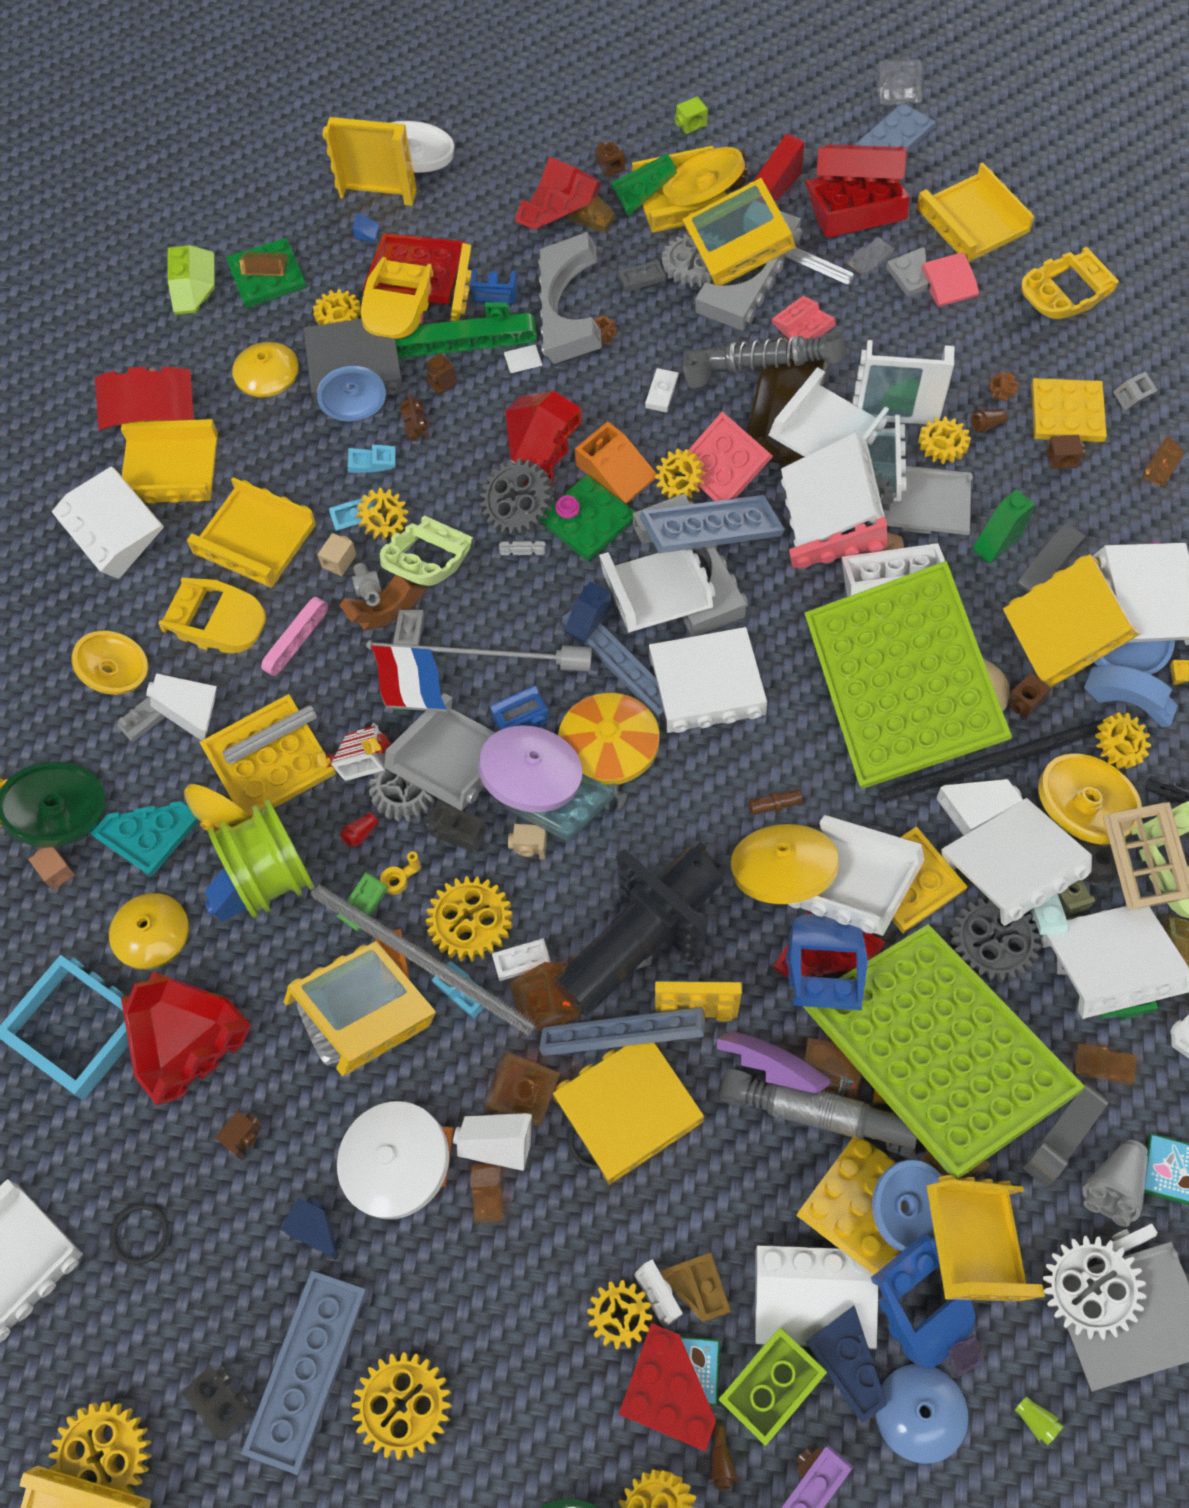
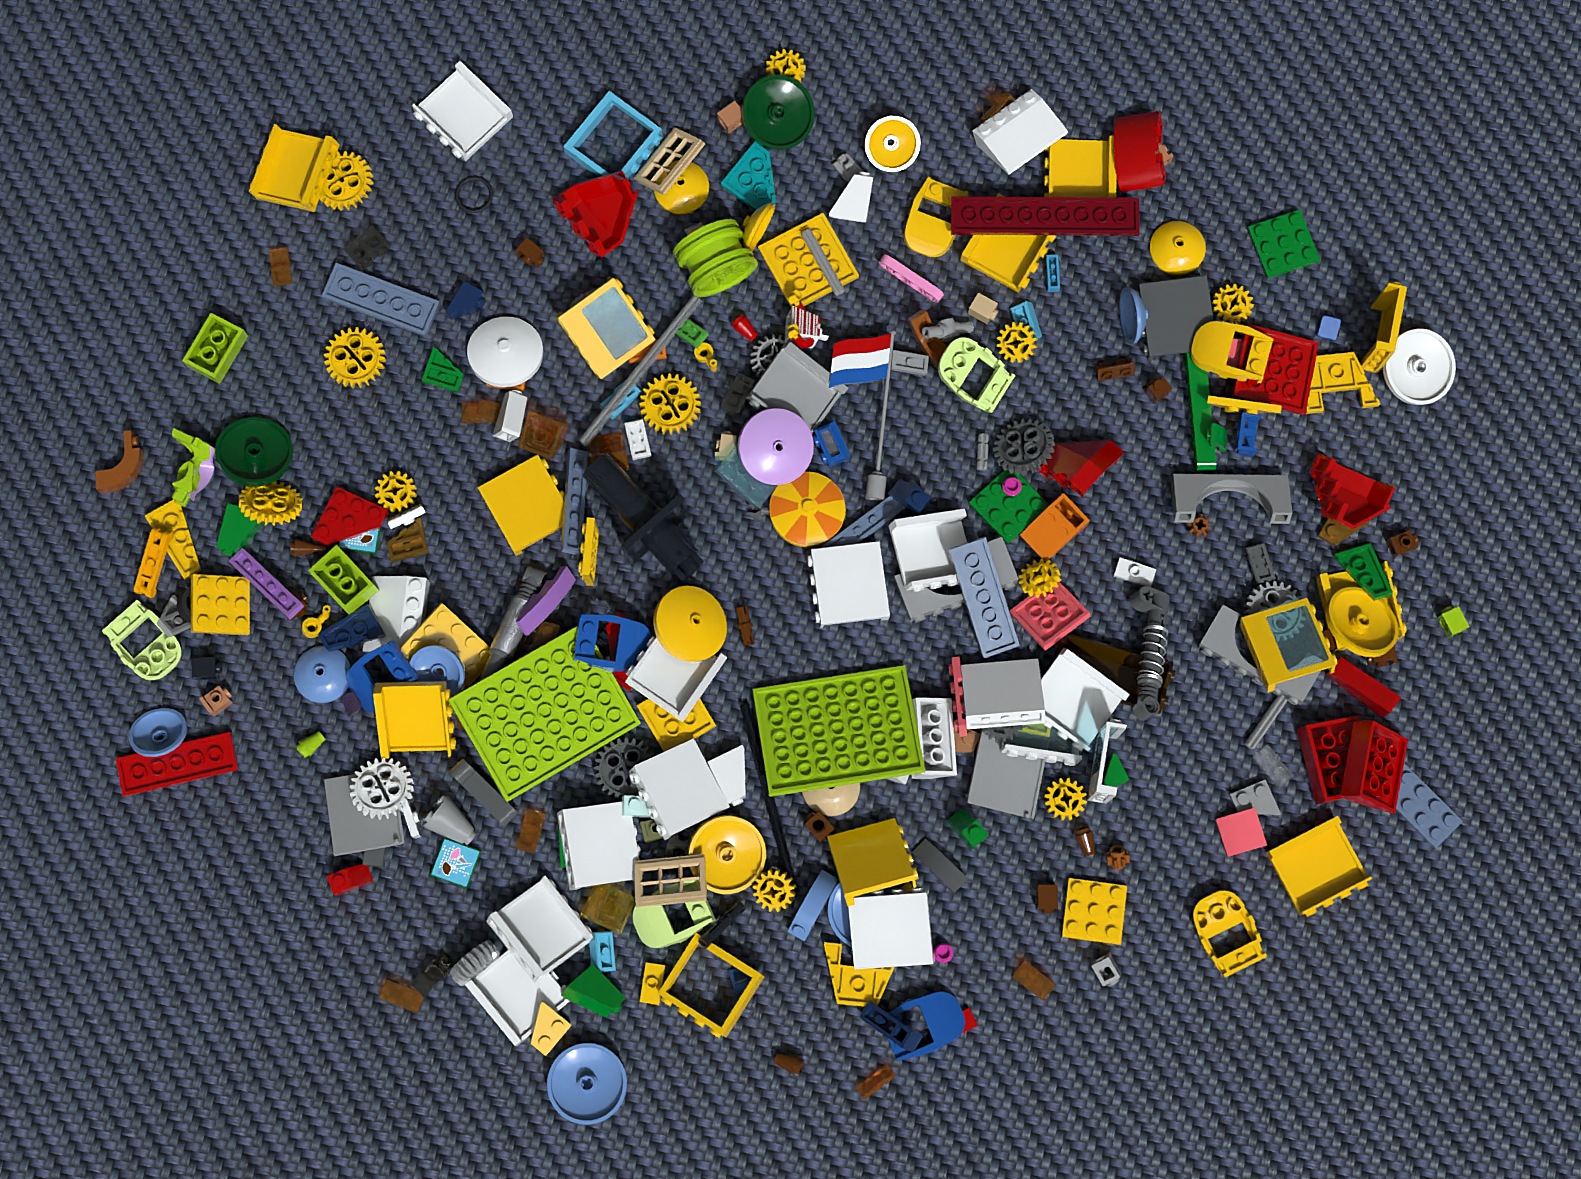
camera: 90 degrees right, 15 degrees up
(67, 548) = (999, 102): none -> clear orange slope
(121, 923) = (673, 174): none -> tan piece
(190, 277) = (1281, 180): lime wedge -> none
(220, 489) = (1045, 216): none -> dark red plate
(263, 263) = (1286, 241): clear orange slope -> none
(293, 486) = (1052, 273): none -> dark azure piece
(374, 460) = (1076, 334): medium azure slope -> none
(420, 218) = (1336, 374): none -> yellow wing
(426, 1257) = (442, 372): none -> green wing
(523, 358) = (1177, 459): white sticker -> none
(803, 320) = (1202, 699): coral slope -> none
(843, 1430) = (315, 622): none -> yellow plate
(899, 82) = (1481, 818): clear slope -> none

